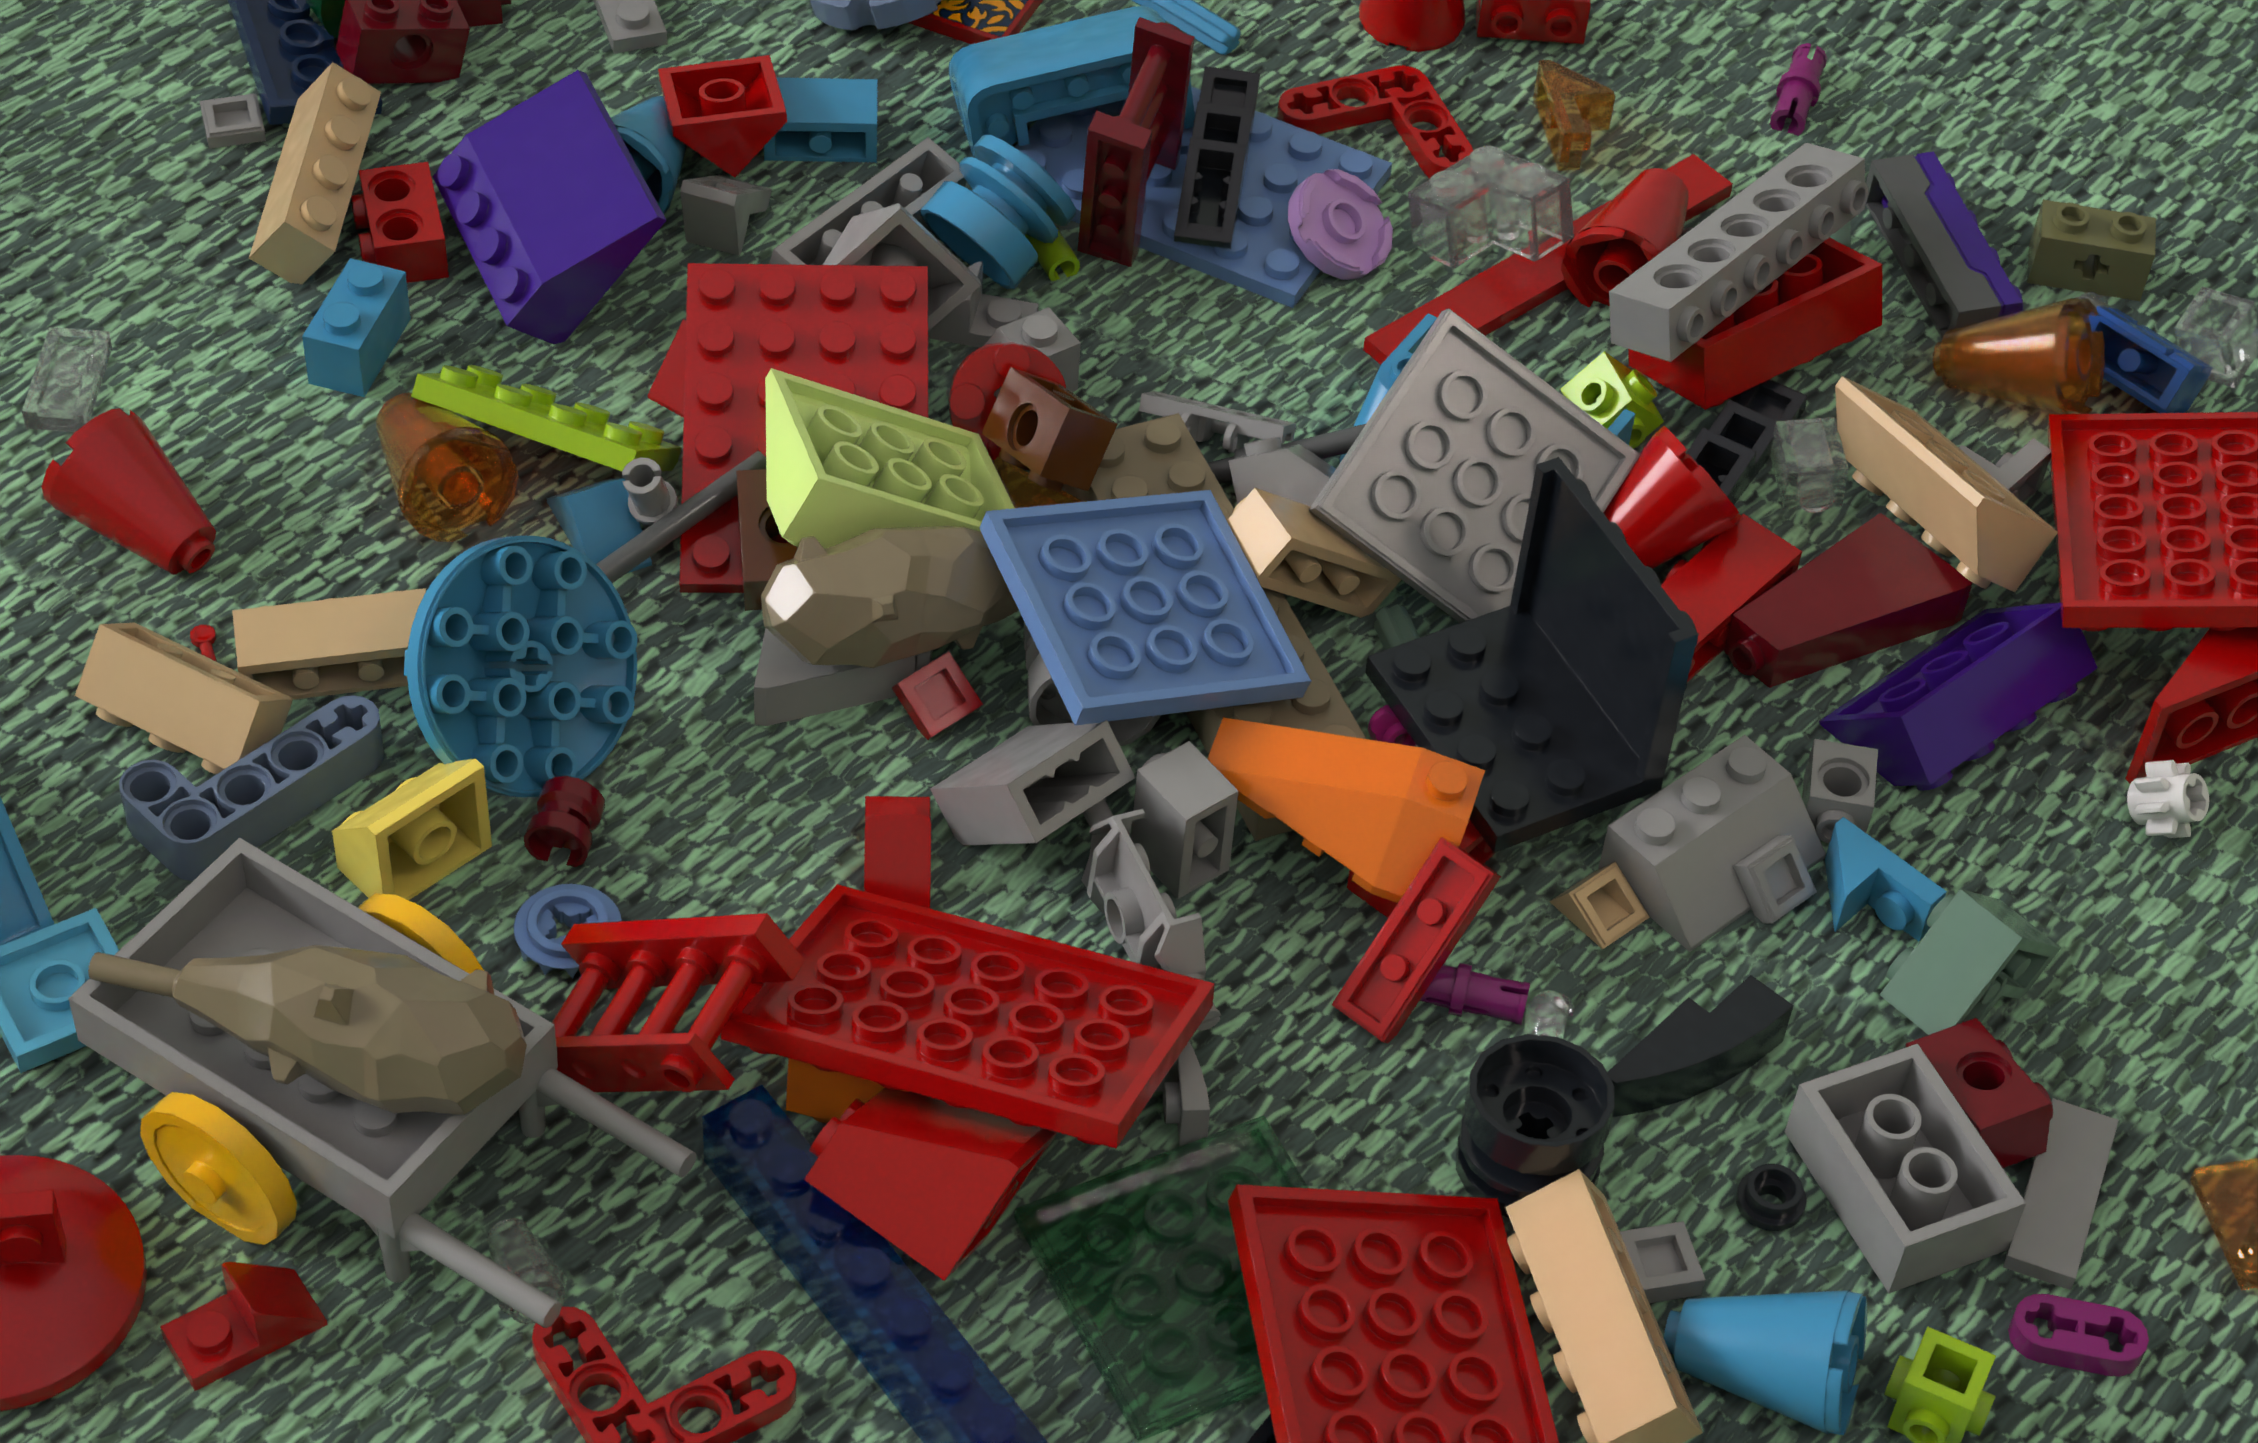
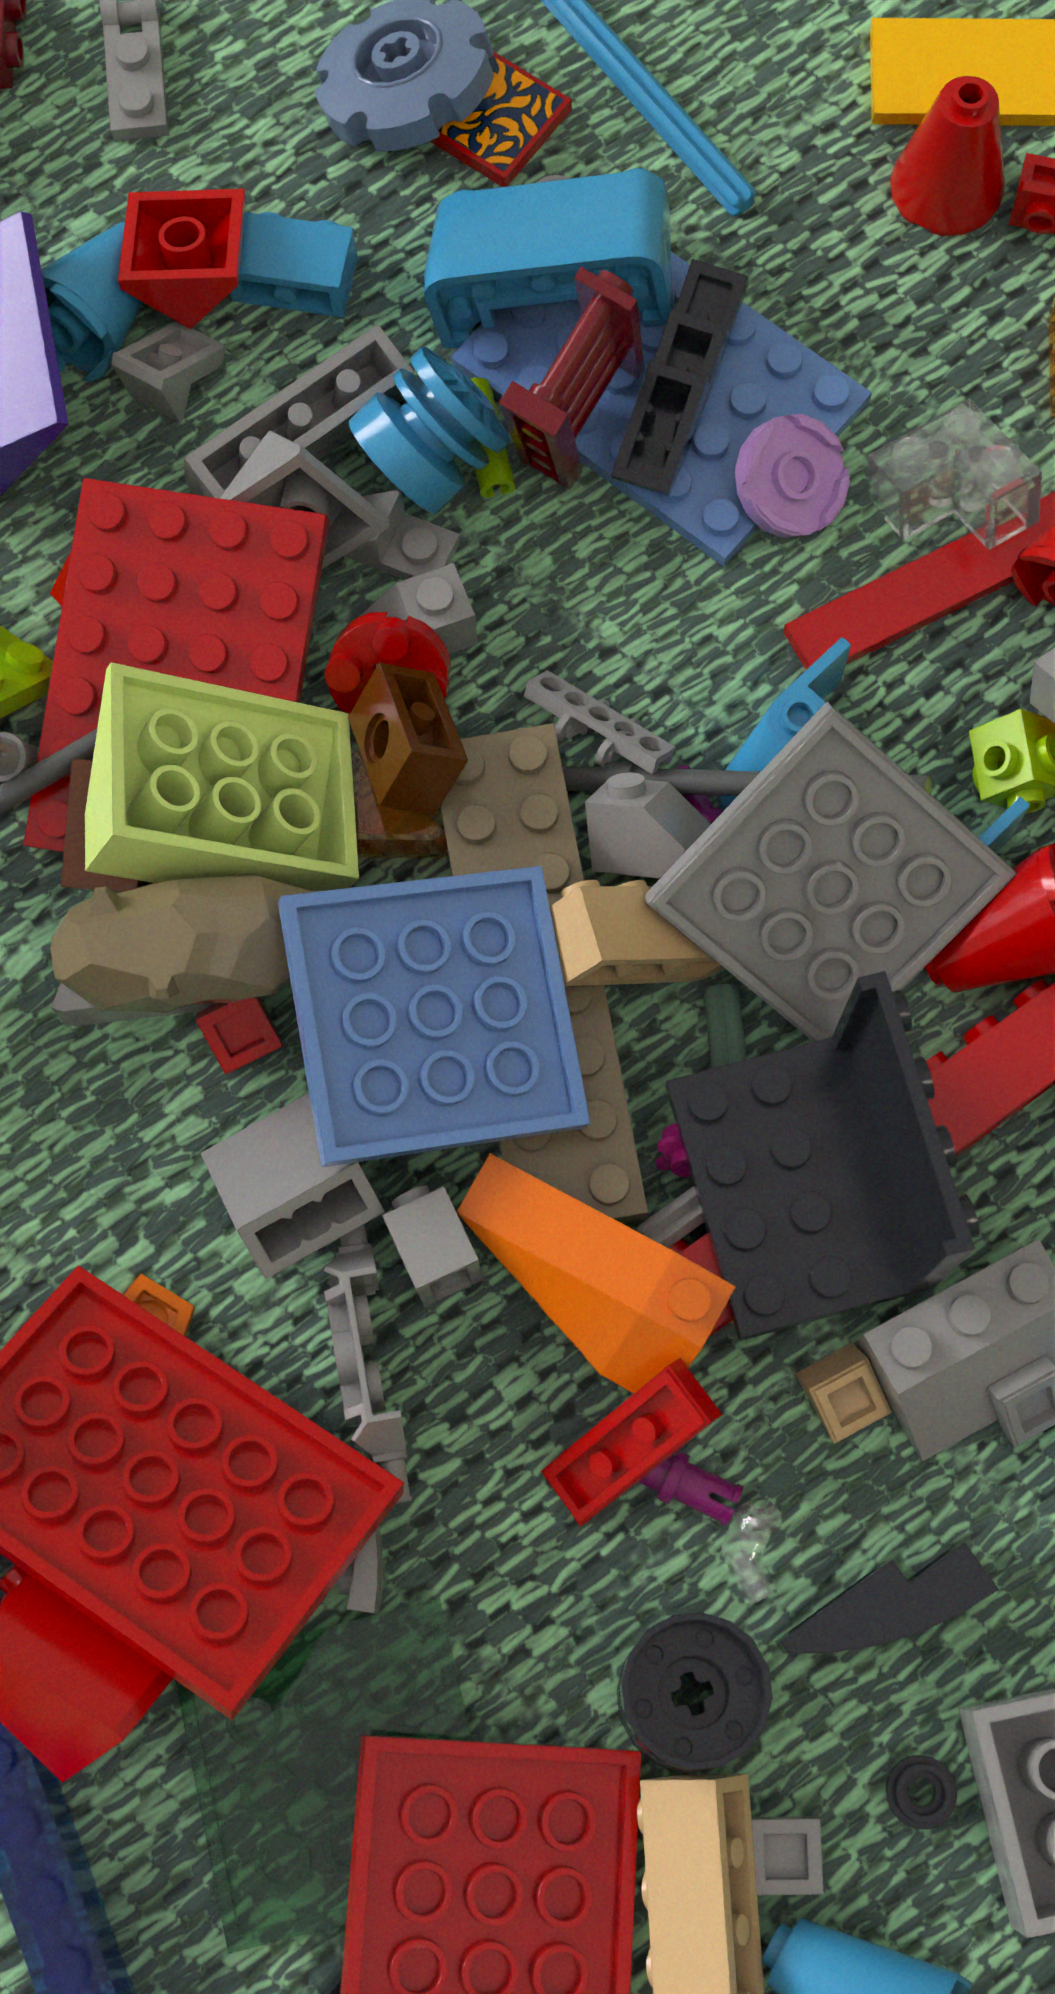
camera: 20 degrees right, 25 degrees up
(898, 848) = (160, 1210): red slope -> none
(1405, 101) = (899, 312): red beam -> none

